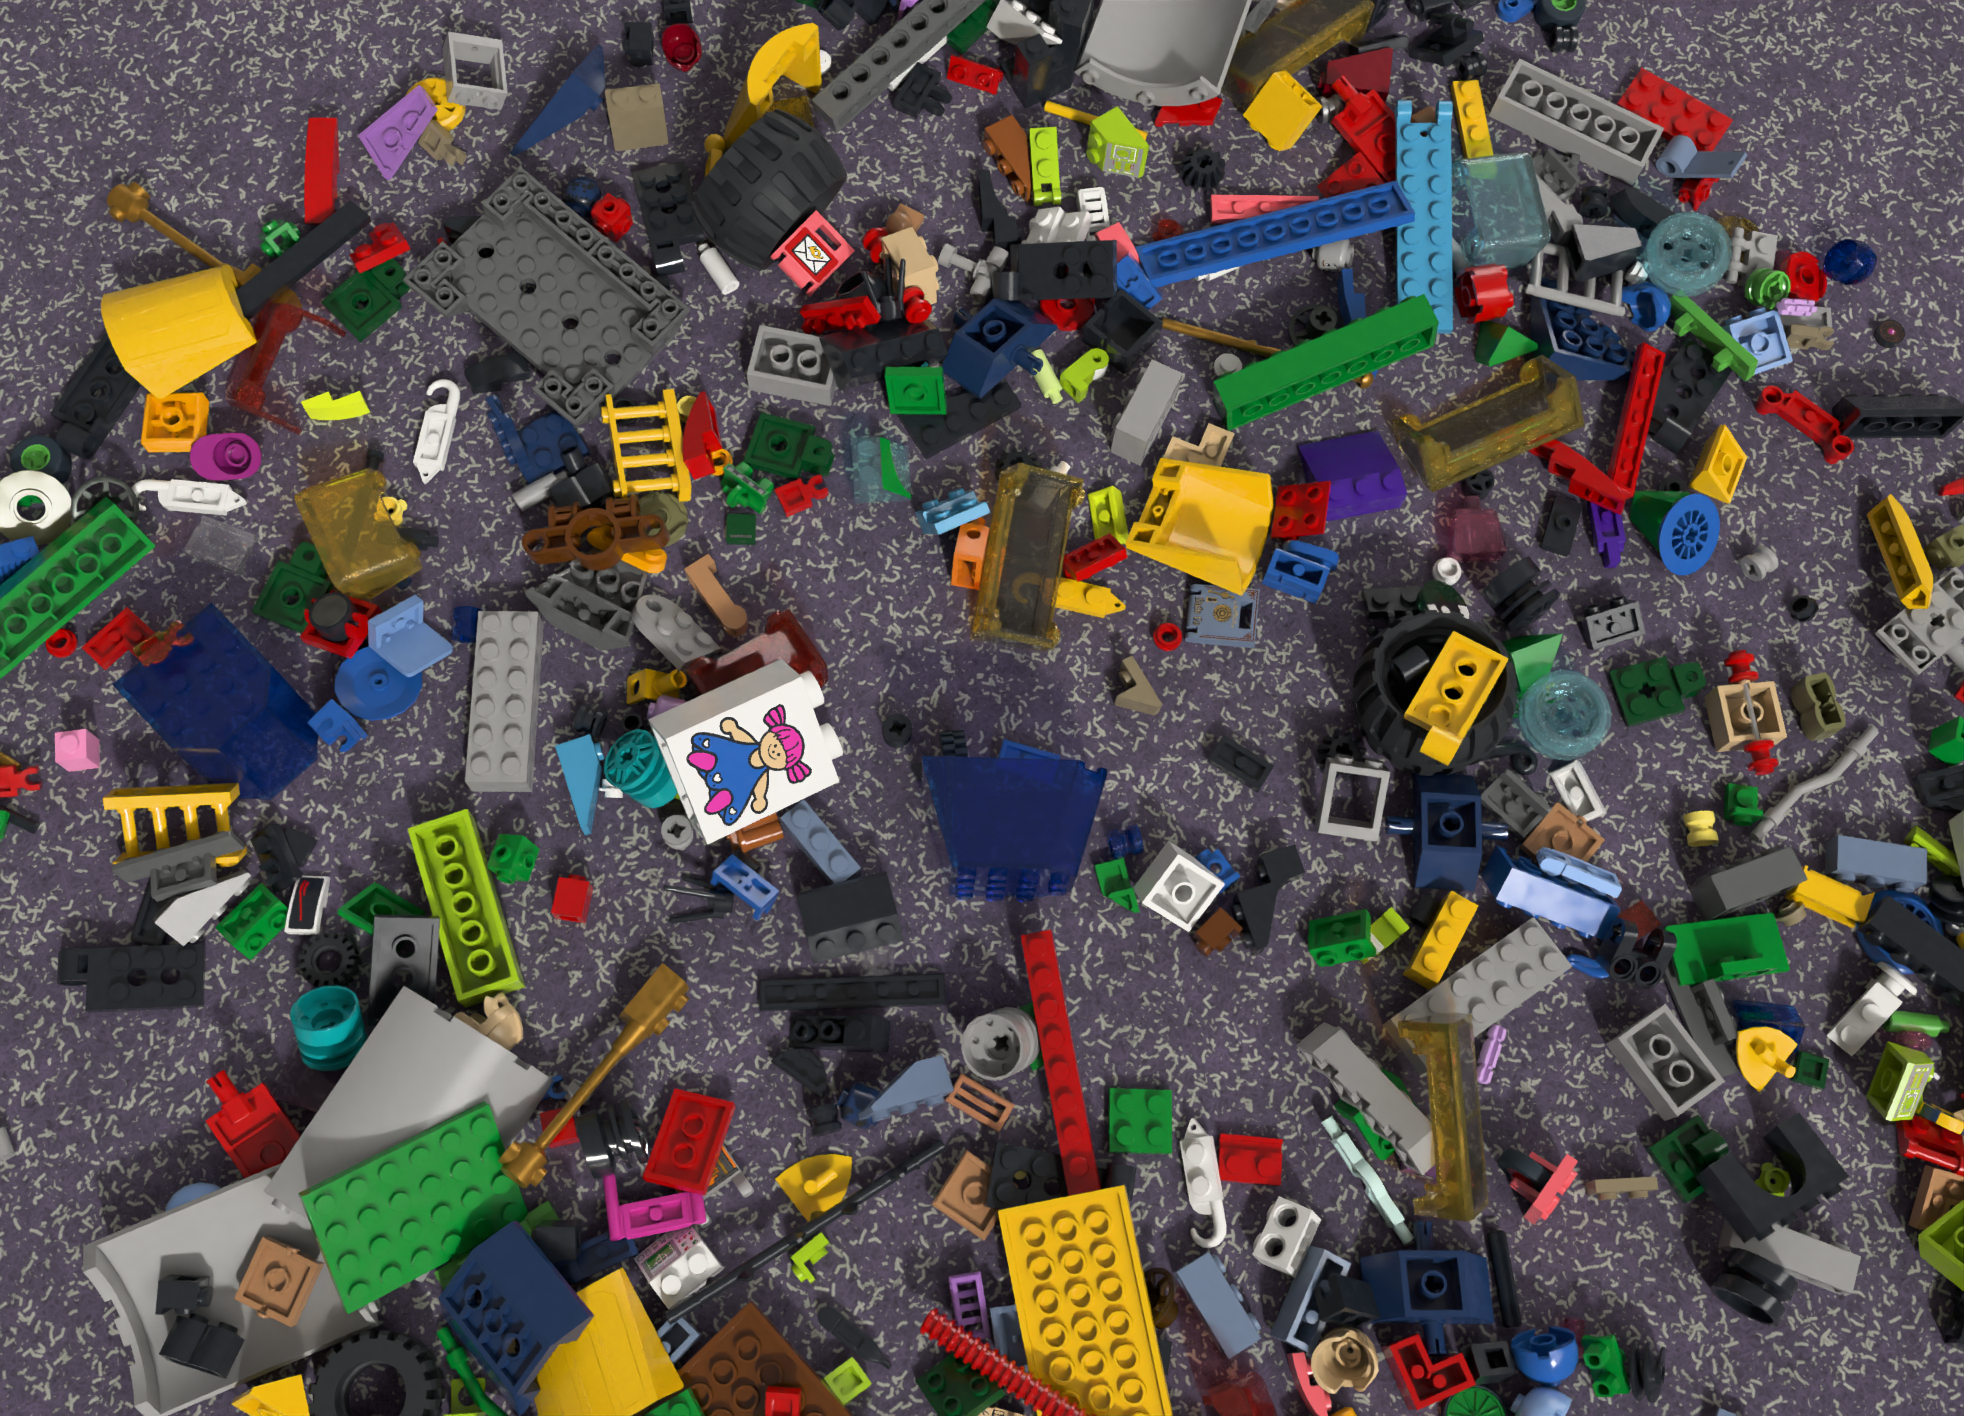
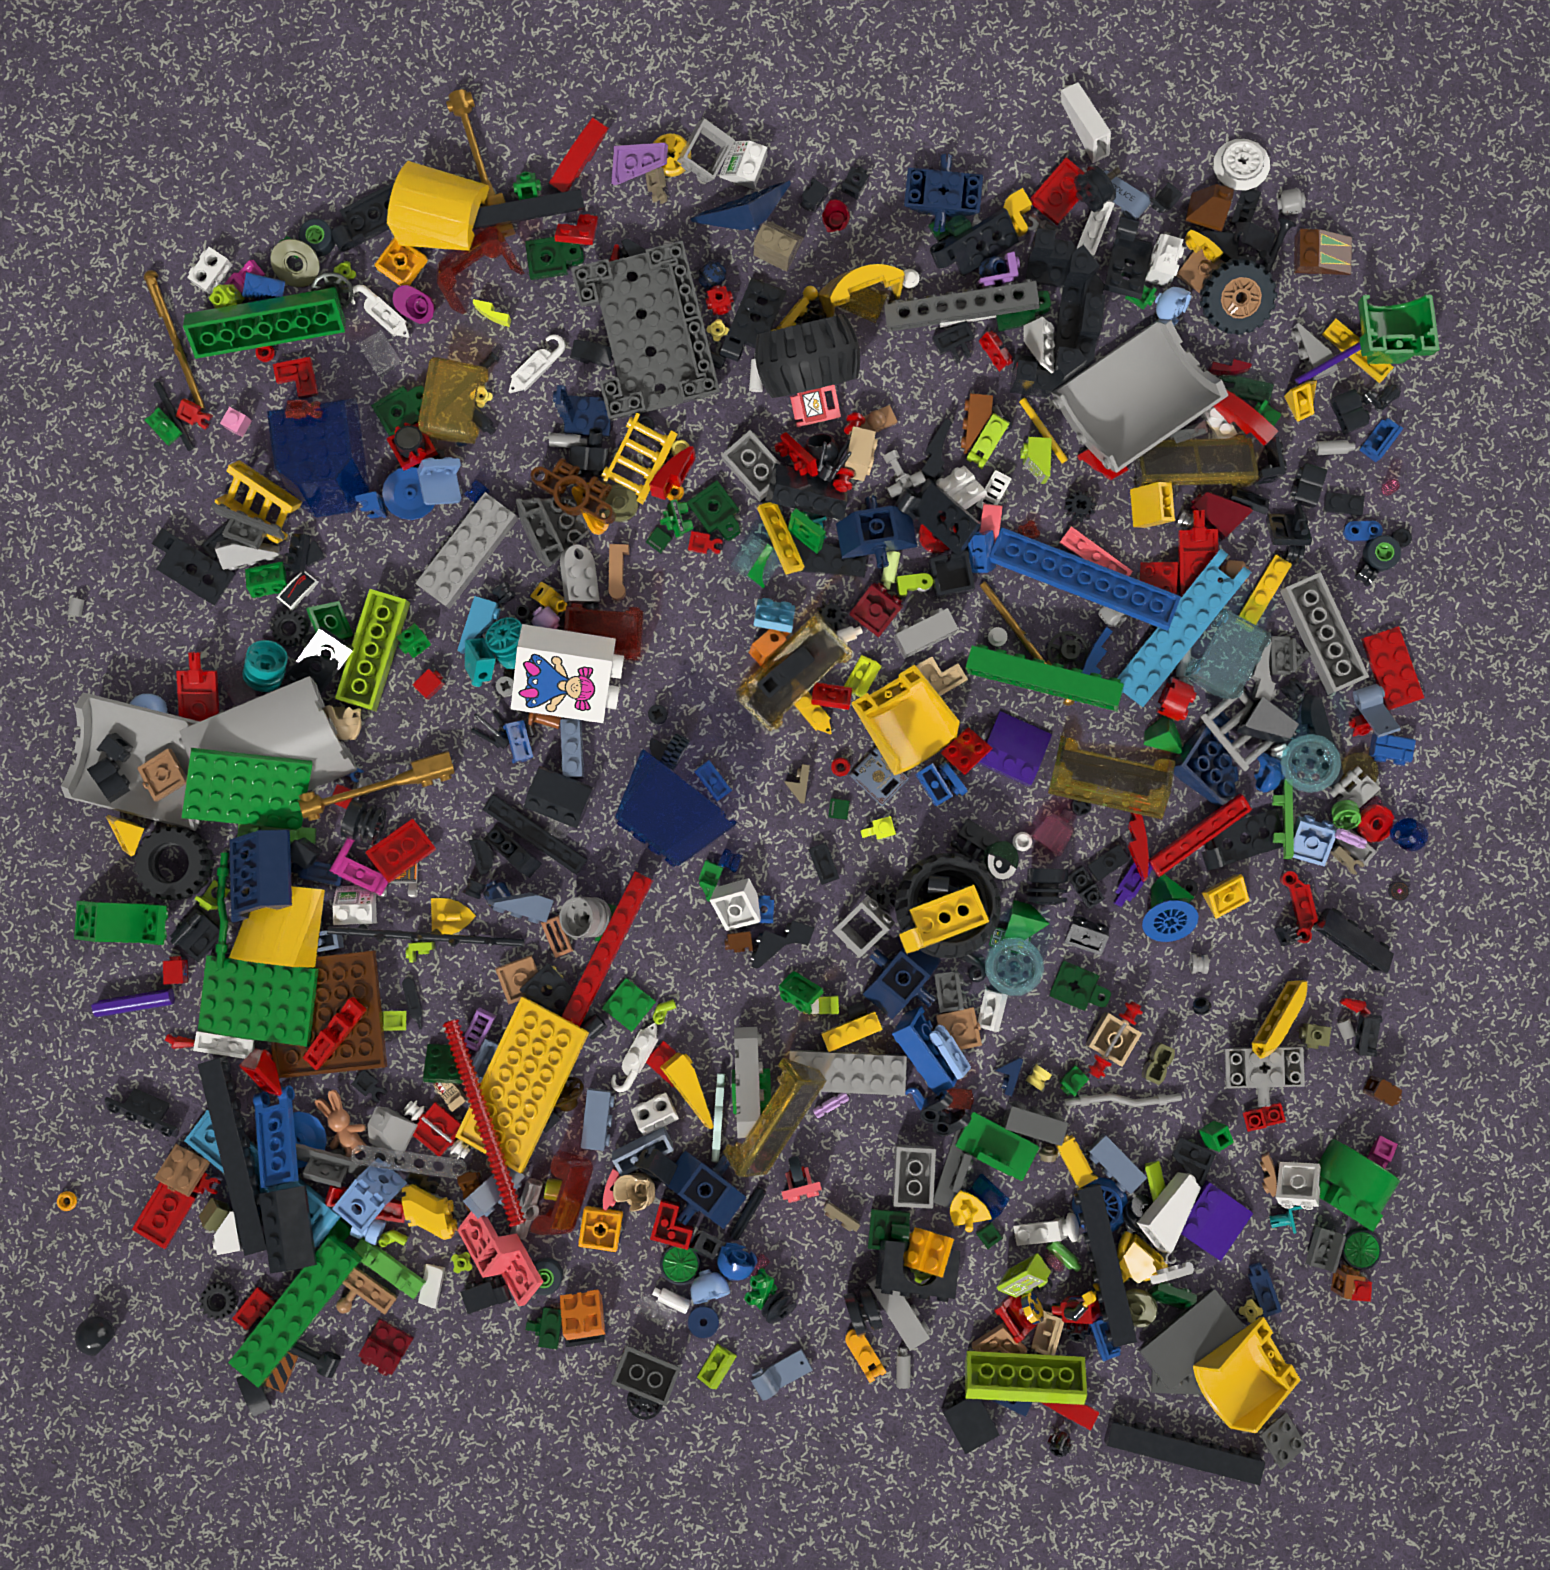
camera: 45 degrees right, 15 degrees up
(105, 471) = (346, 266): none -> lime plate
(531, 60) = (744, 163): none -> white slope
(620, 821) = (478, 661): none -> teal torso
(637, 246) = (717, 324): none -> light yellow plate
(889, 423) = (780, 537): none -> yellow plate
(1019, 565) = (785, 672): none -> black slope
(1066, 428) = (877, 609): none -> dark red plate
(1186, 1095) = (661, 1011): none -> lime arm
(1205, 687) = (838, 809): none -> dark green tile
(1273, 674) = (881, 828): none -> neon yellow plate
(1297, 1163) = (685, 1080): none -> yellow slope
(1563, 573) = (1085, 887): none -> black slope
(1665, 842) = (1012, 1069): none -> dark blue slope
(1748, 190) = (1392, 748): none -> blue brick
(1767, 1142) = (928, 1252): none -> light orange plate
(1797, 1349) = (864, 1355): none -> light orange plate
(1824, 460) = (1287, 935): none -> black plate
(1860, 1328) = (903, 1369): none -> light grey cylinder

